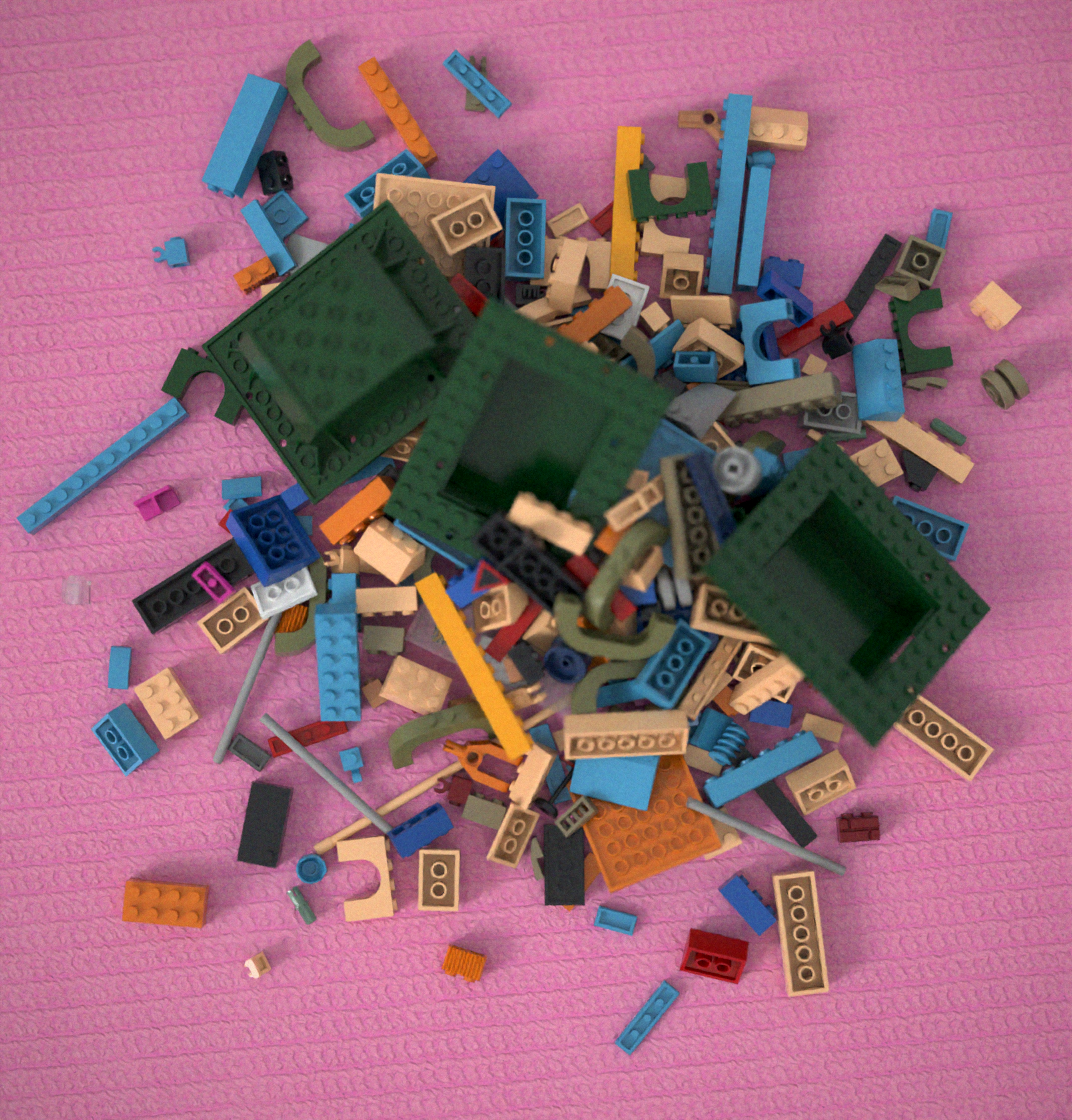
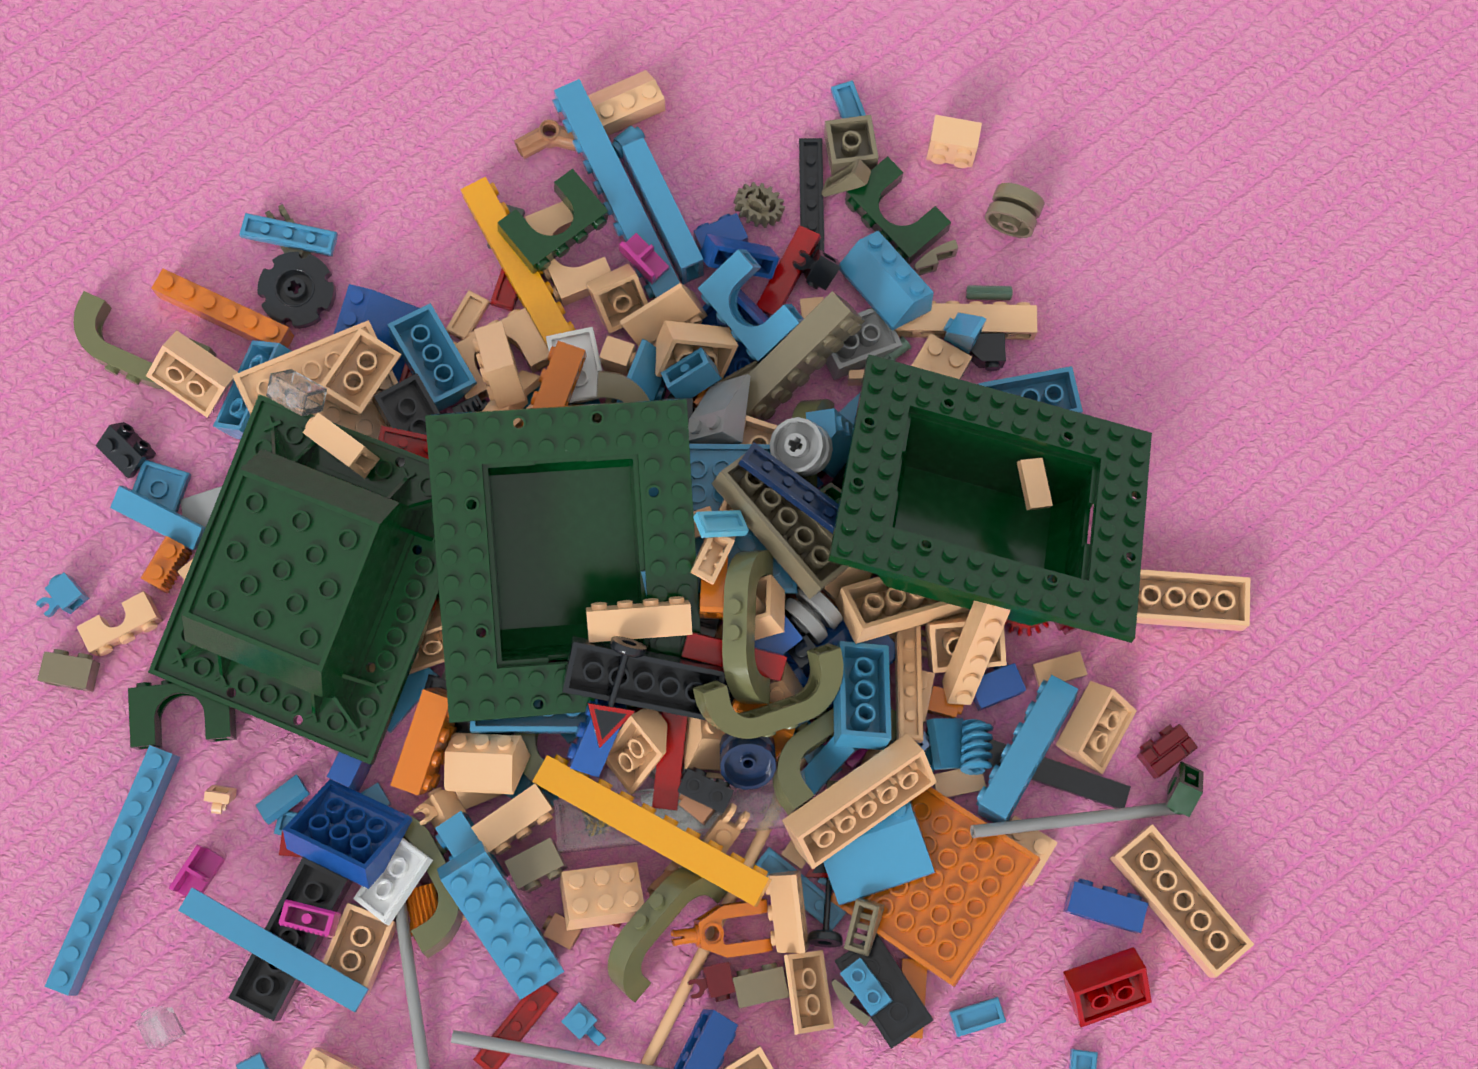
camera: 35 degrees left, 10 degrees down
(148, 310) = (69, 671): none -> dark tan brick
(178, 587) = (274, 949): none -> dark azure tile
(201, 460) = (220, 797): none -> light nougat tile
(218, 300) = (140, 617): none -> light nougat arch
(244, 136) = (70, 429): dark azure brick -> none
(350, 149) = (191, 373): none -> light nougat slope
(413, 214) = (296, 392): none -> clear brick
(421, 275) = (340, 445): none -> light nougat brick
(451, 115) = (279, 287): none -> black piece
(553, 856) = (866, 987): none -> dark azure brick
(647, 492) = (720, 523): none -> medium azure tile
(716, 258) = (643, 258): none -> dark pink panel
(824, 266) = (759, 204): none -> dark tan gear
(851, 862) = (1184, 789): none -> brick
(883, 594) = (1034, 484): none -> light nougat tile
(908, 451) = (964, 330): none -> dark azure slope

